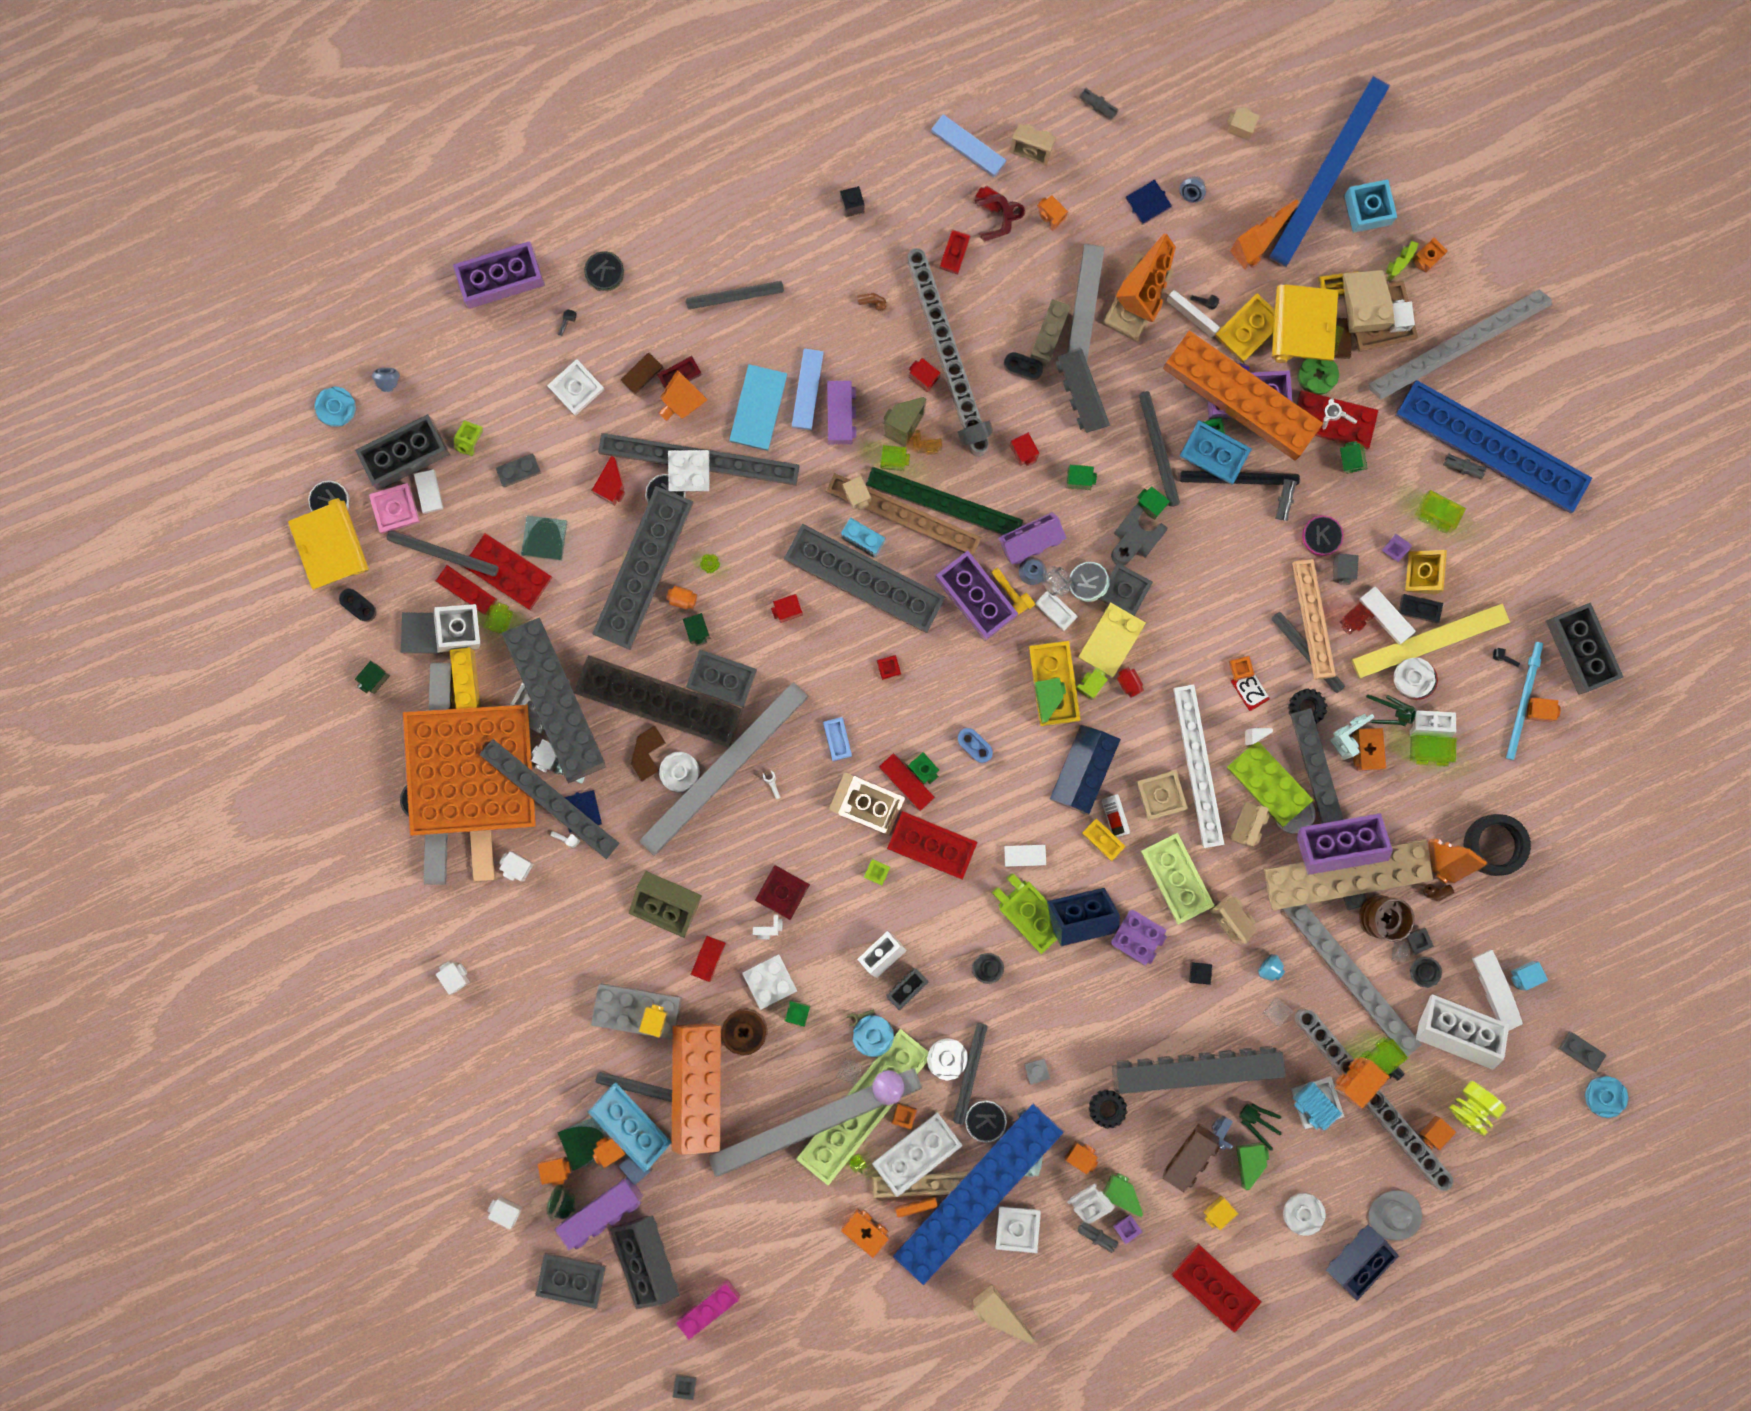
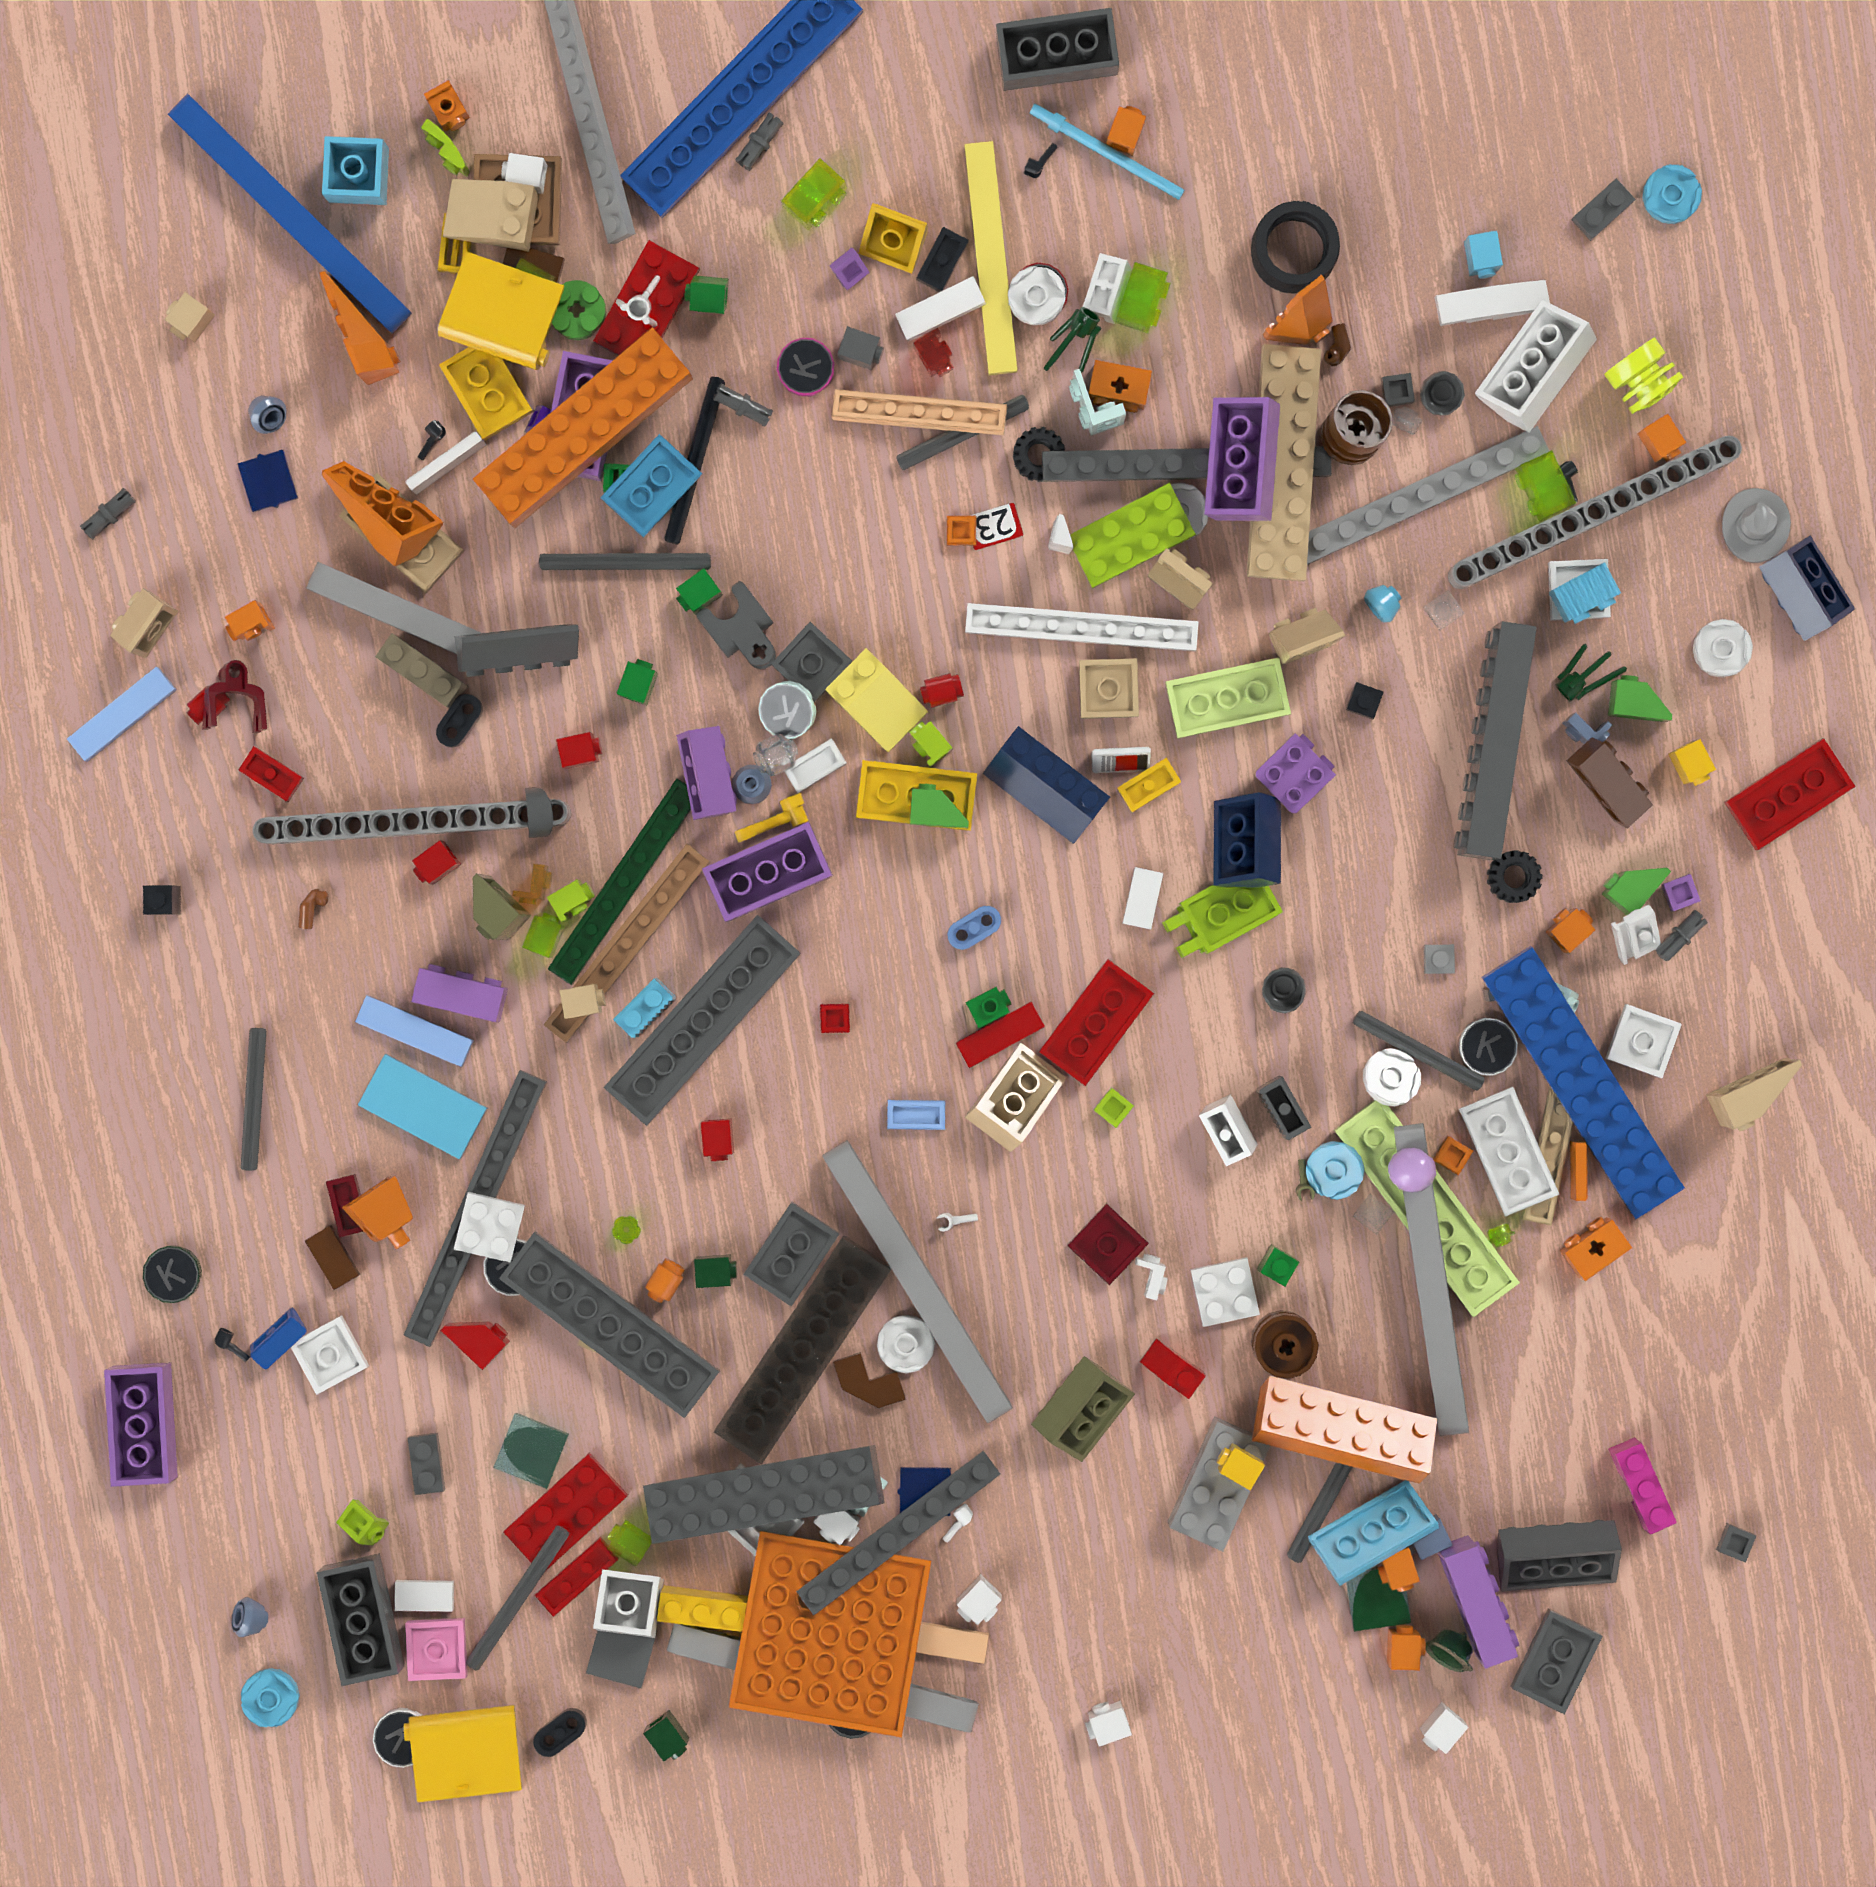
camera: 75 degrees left, 5 degrees up
(578, 351) = (277, 1339): none -> blue slope
(923, 470) = (571, 899): none -> lime brick
(1361, 1082) = (1569, 526): orange brick -> none

